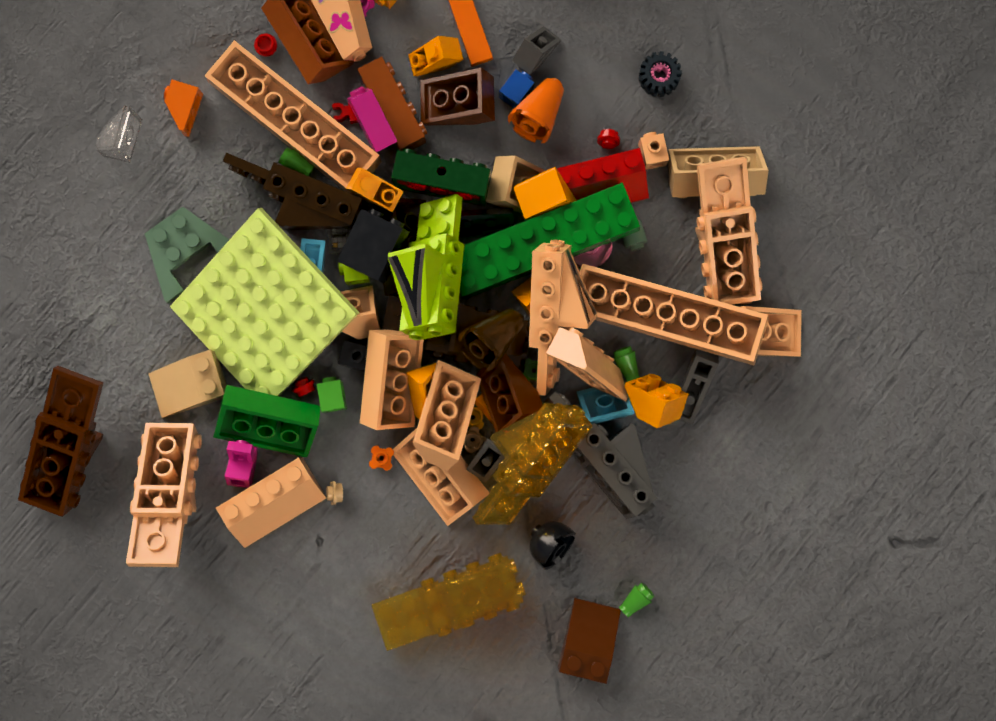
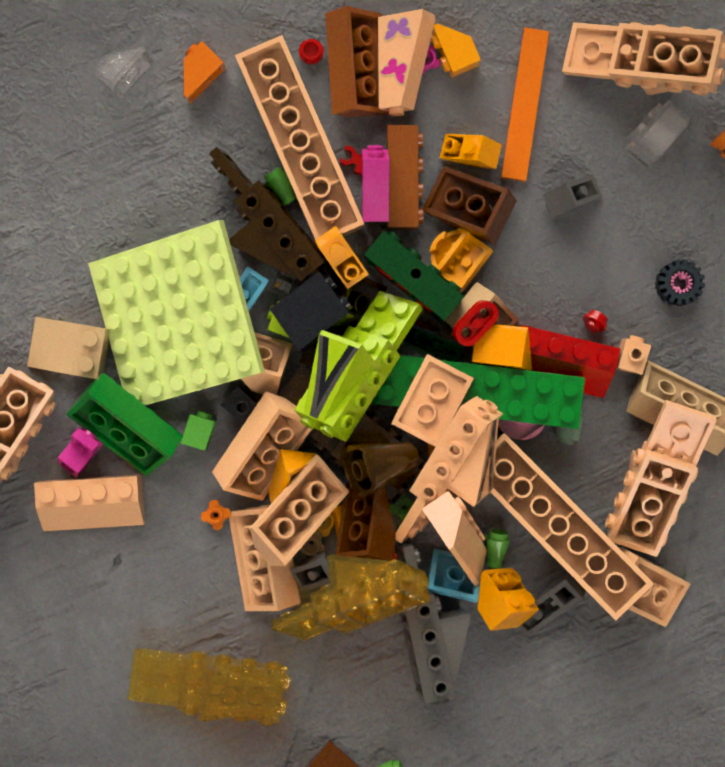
camera: 30 degrees right, 5 degrees up
(176, 242) = (127, 202): sand green wing -> none
(303, 386) = (177, 408): red plate -> none
(334, 492) = (154, 525): tan plate -> none
(470, 142) = (459, 256): none -> light orange slope
(508, 265) = (432, 400): none -> light nougat plate
(511, 186) = (477, 325): none -> red plate
(516, 88) = (532, 225): blue brick -> none
(538, 111) = (542, 258): orange cone -> none
(549, 542) = (333, 679): black cylinder -> none

